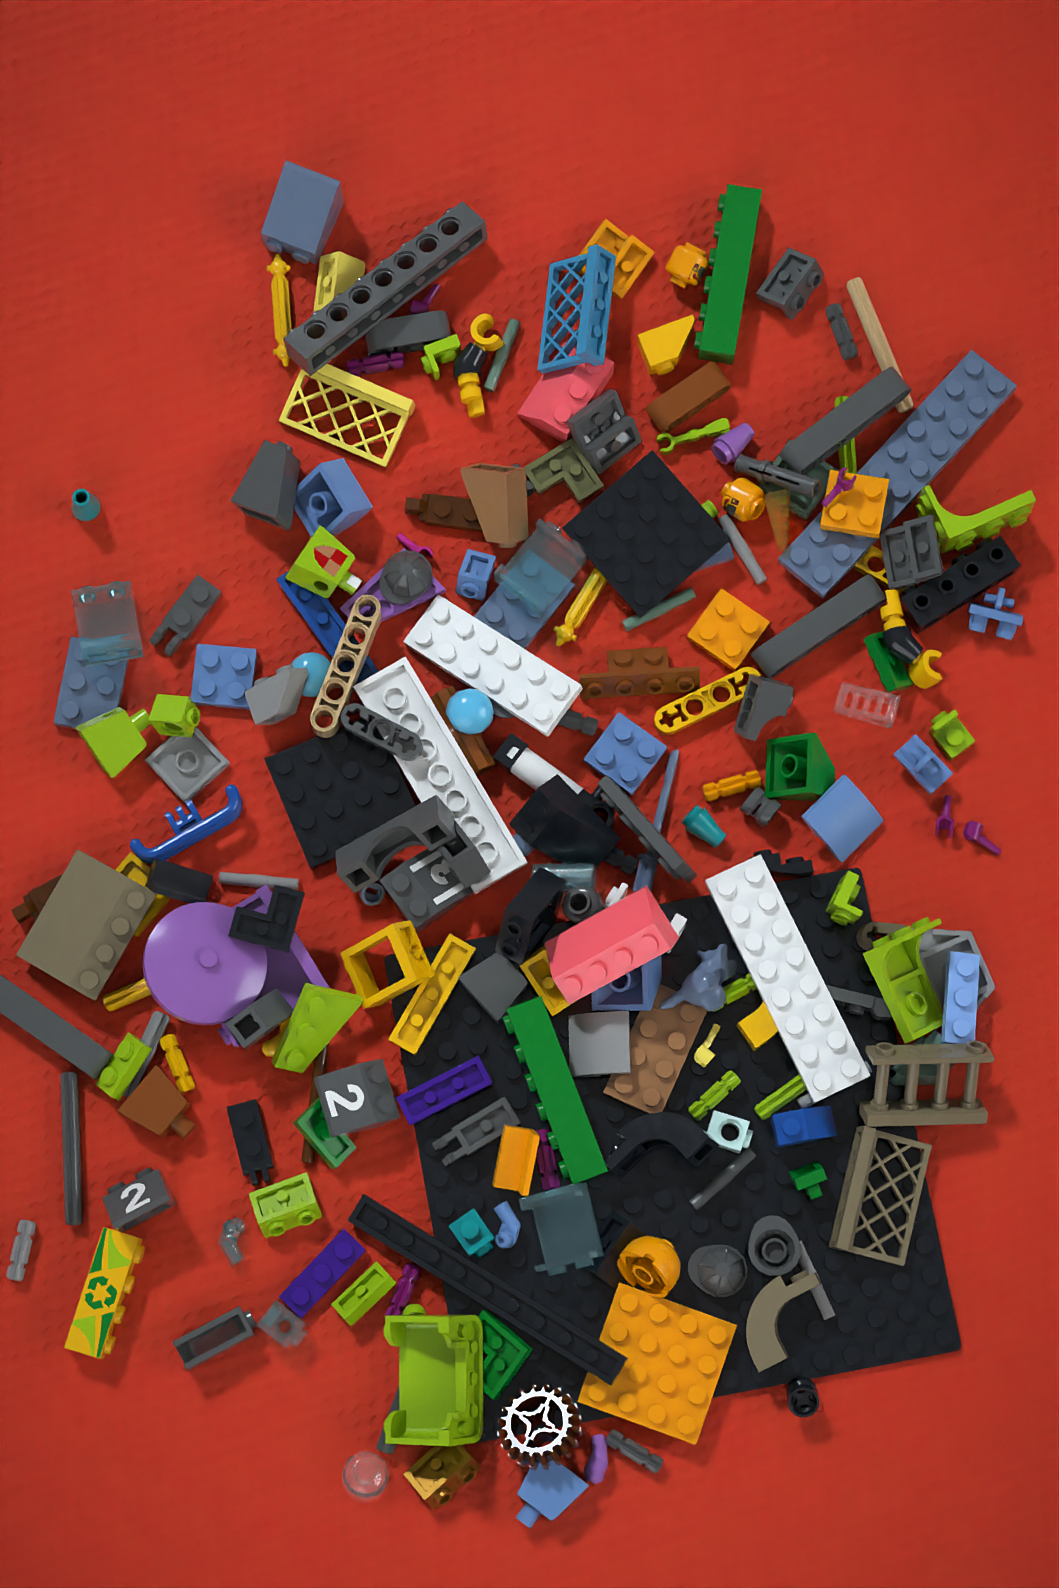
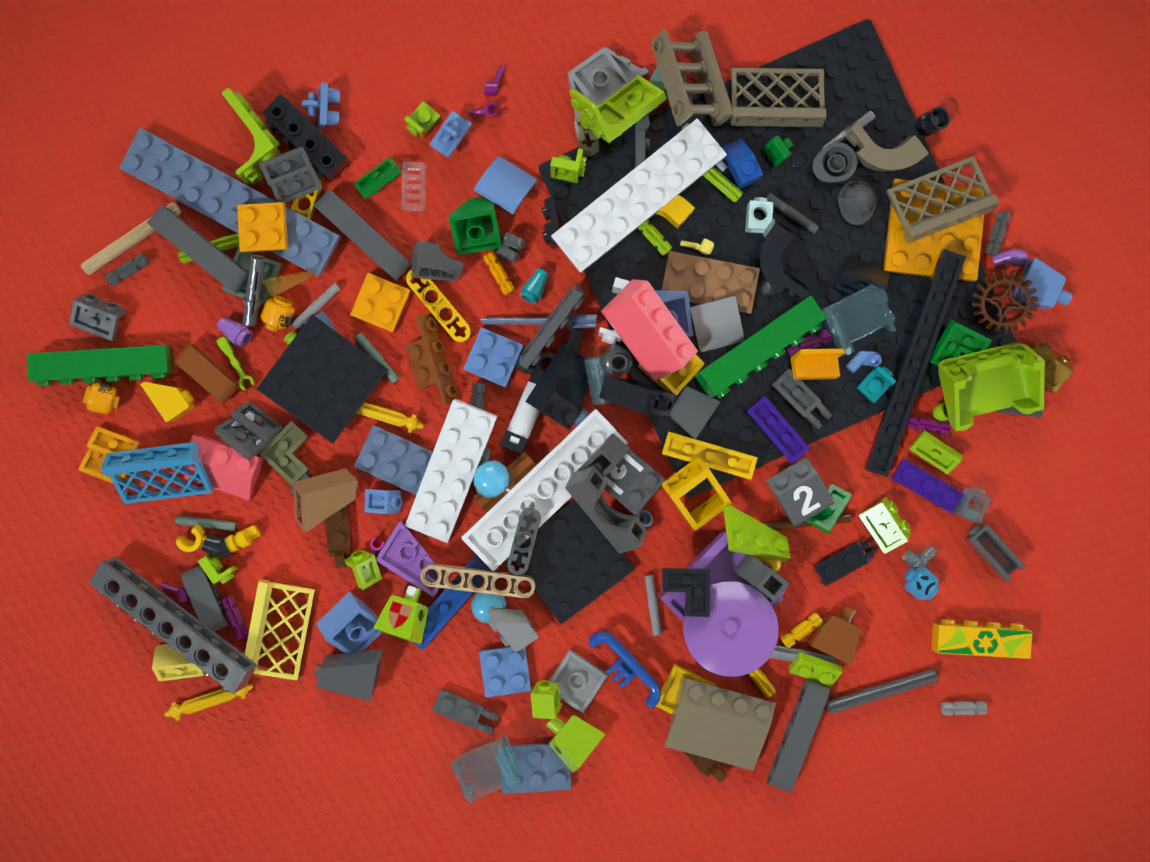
camera: 105 degrees left, 10 degrees up
(87, 510) = (400, 806): teal cone -> none
(138, 1200) = (911, 632): dark grey slope -> none
(178, 881) = (672, 663): black panel -> none
(198, 1232) = (921, 583): none -> dark azure head
(302, 213) = (127, 704): sand blue slope -> none
(365, 1476) = (1062, 419): clear hair -> none
(397, 532) = (364, 568): none -> lime bracket
(405, 577) = (398, 553): dark grey piece -> none
(541, 567) = (366, 452): clear light blue panel -> none
(651, 1264) = (868, 247): light orange cylinder -> none
(667, 1378) = (948, 218): none -> dark tan fence
(703, 984) = (657, 256): sand blue animal -> none
(714, 1095) = (733, 232): lime axle -> none
(841, 485) = (252, 239): magenta hand -> none
(904, 646) = (363, 167): yellow piece -> none
(960, 998) = (621, 68): light blue plate -> none

